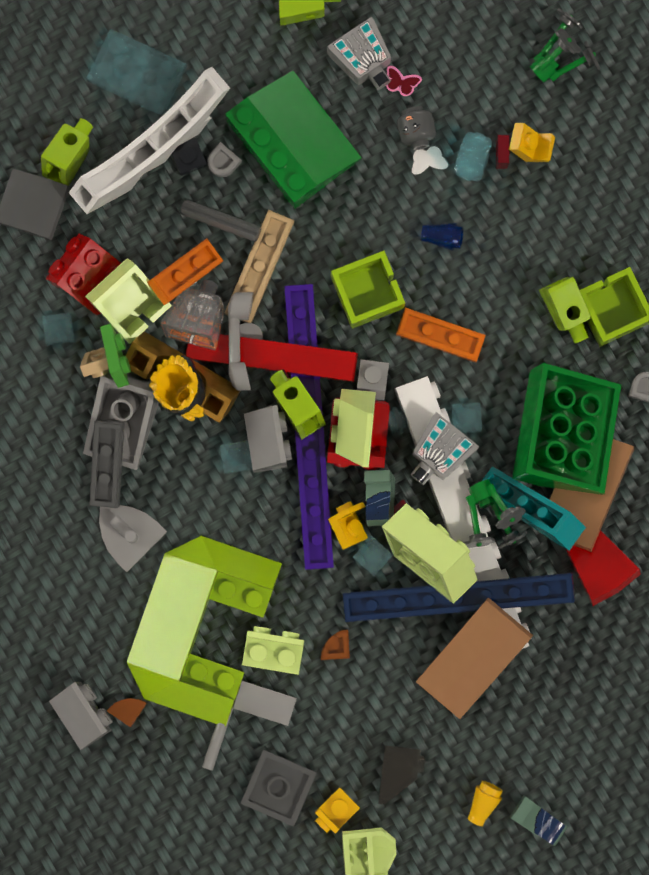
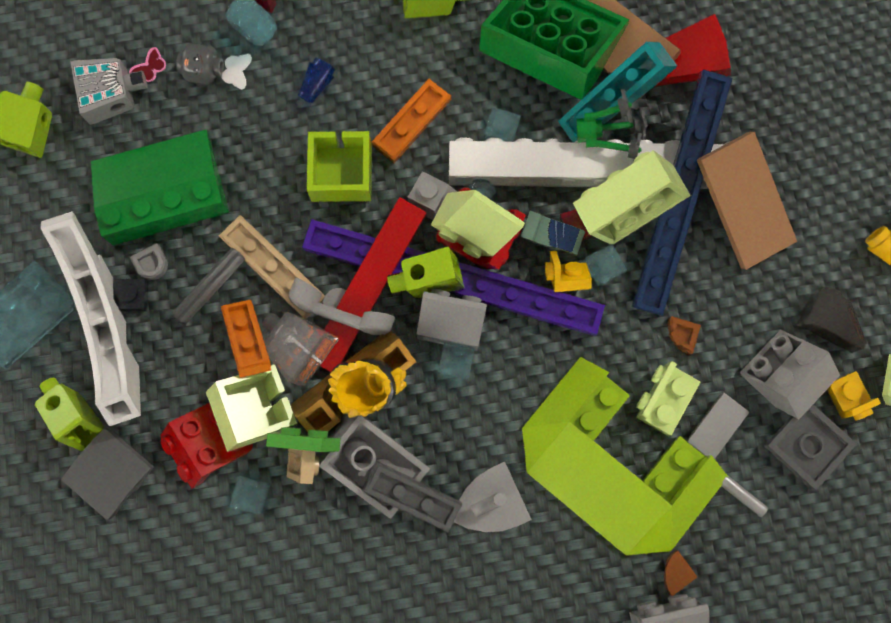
camera: 70 degrees left, 5 degrees down
(334, 749) = (791, 373): none -> light grey slope
(441, 450) = (530, 150): torso -> none

